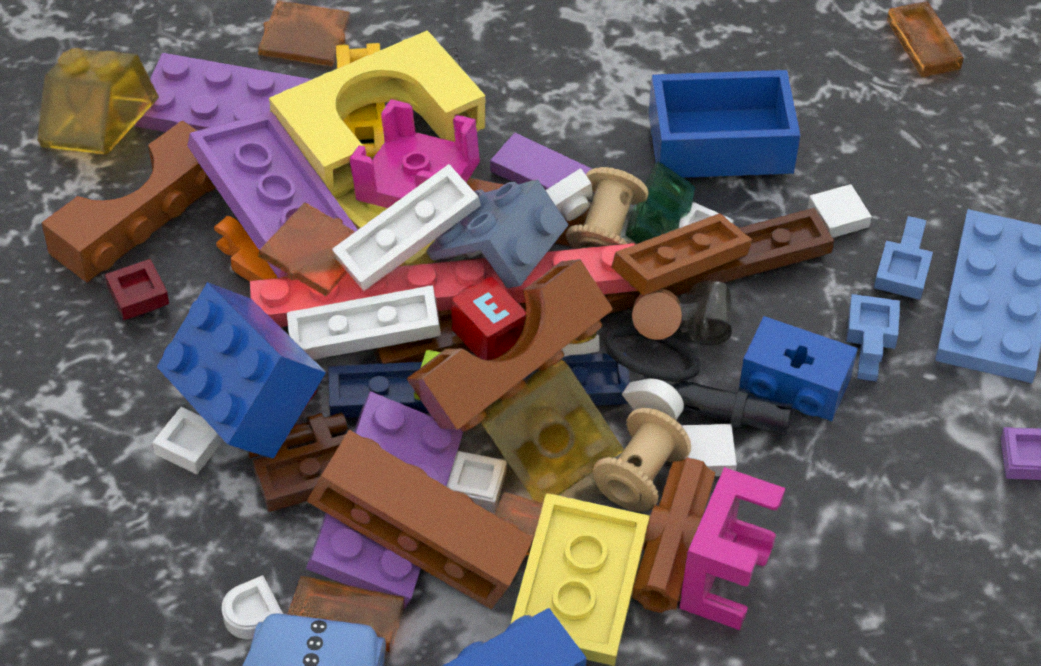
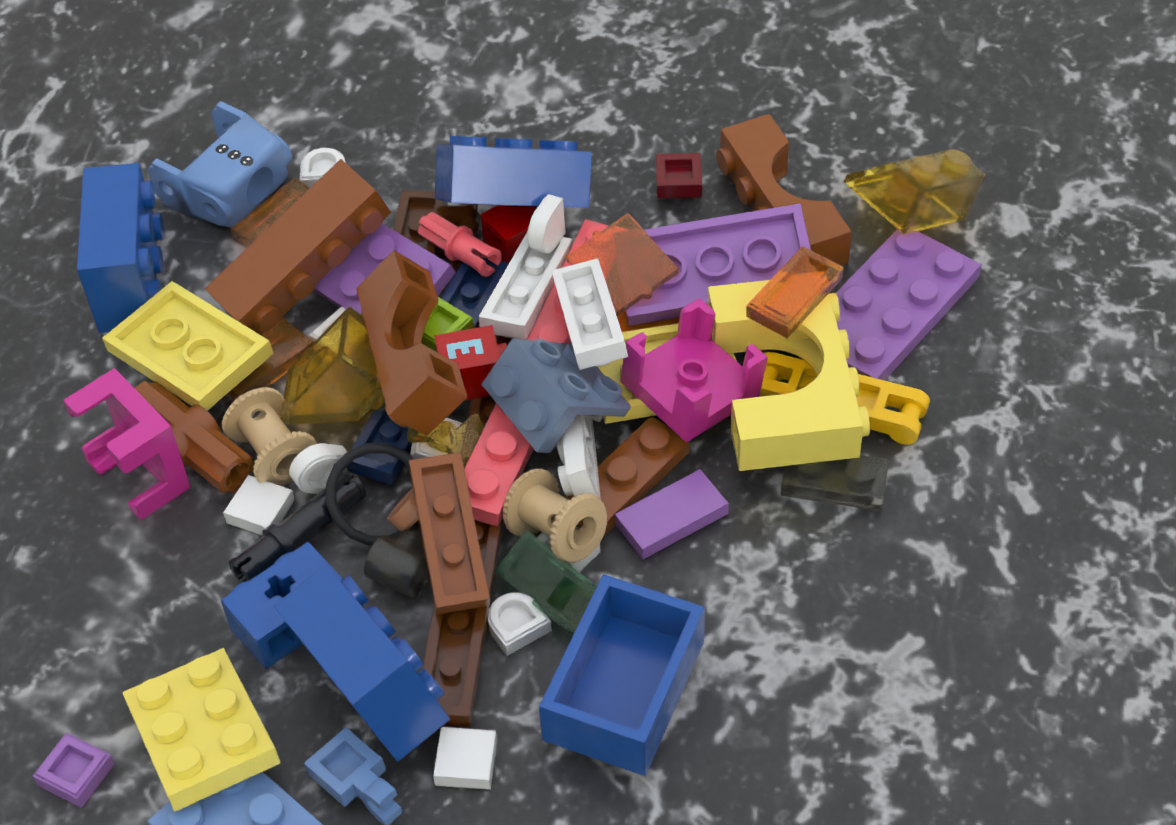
camera: 120 degrees right, 0 degrees up
(300, 311) = (547, 225): none -> white tile
(304, 33) = (977, 393): clear orange piece -> none
(307, 102) = (794, 292): none -> clear orange tile
(333, 403) = (459, 243): none -> coral axle
(836, 251) = (363, 662): none -> blue piece
(873, 325) = (292, 701): medium blue plate -> none
(944, 369) = (200, 729): none -> light yellow plate

